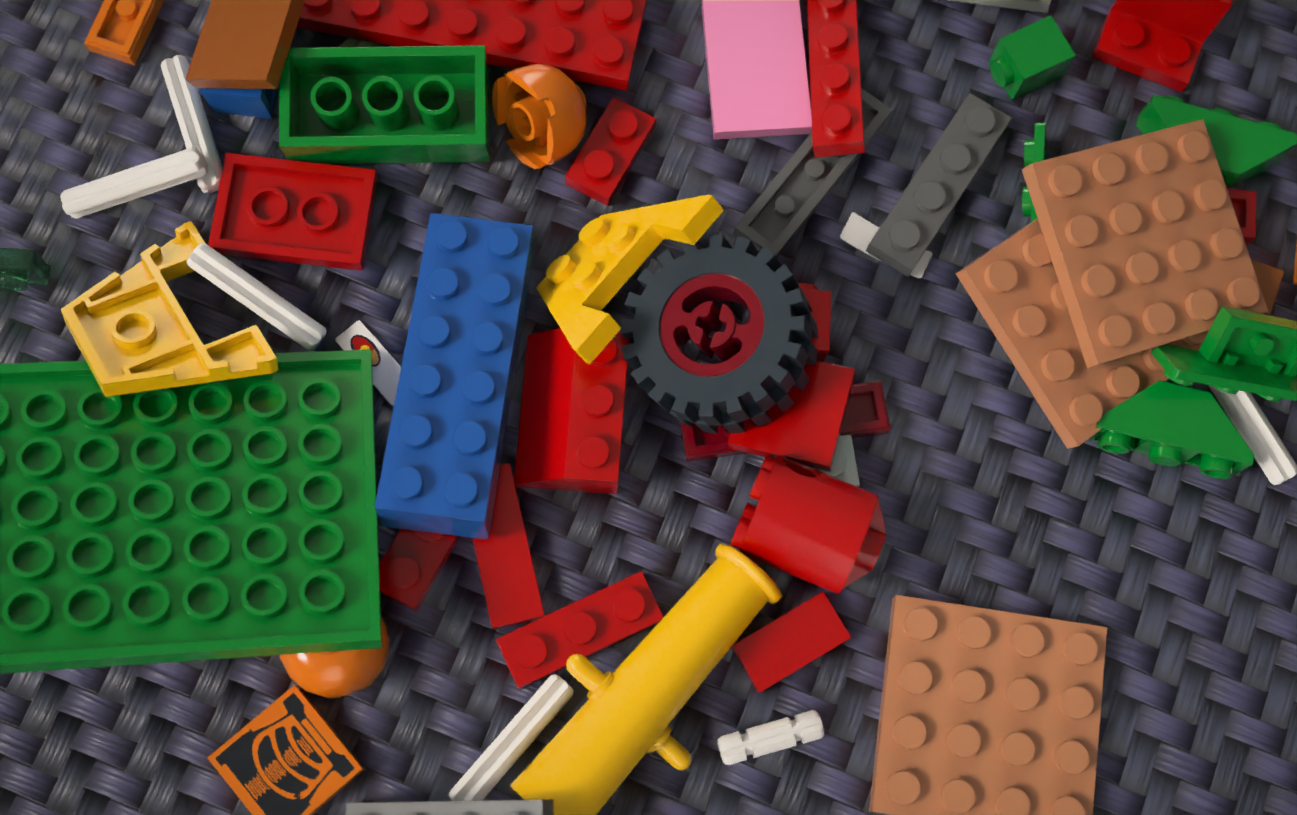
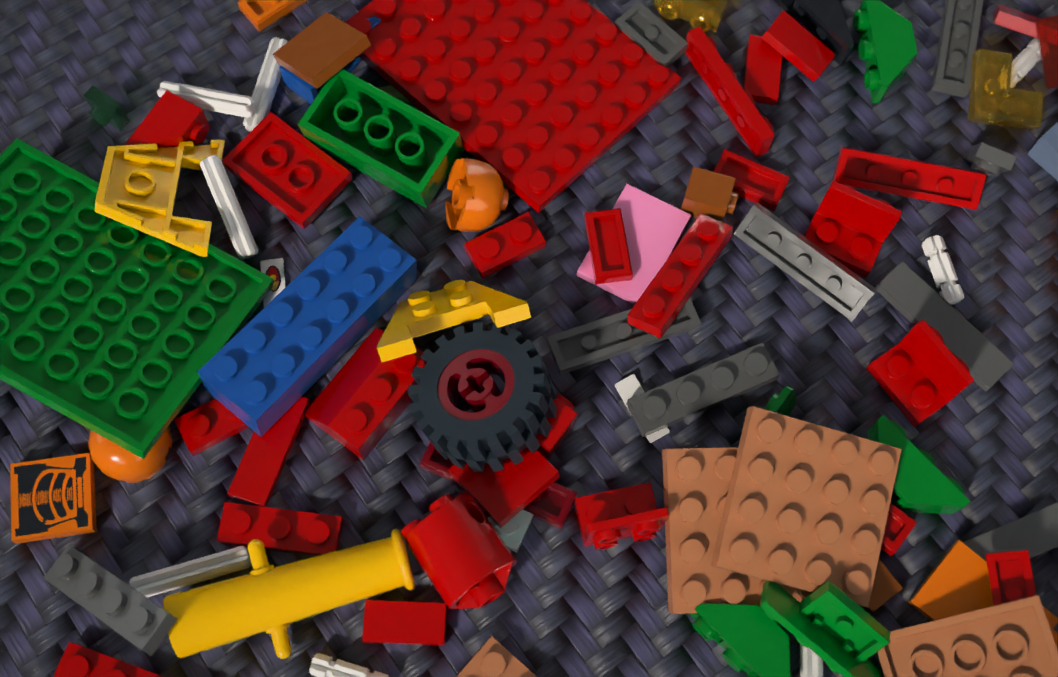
camera: 35 degrees right, 5 degrees down
(113, 237) = (171, 122): none -> red slope
(732, 82) = (608, 246): none -> red tile
(944, 378) = (619, 515): none -> red bracket
(1031, 58) = (818, 343): green brick -> none

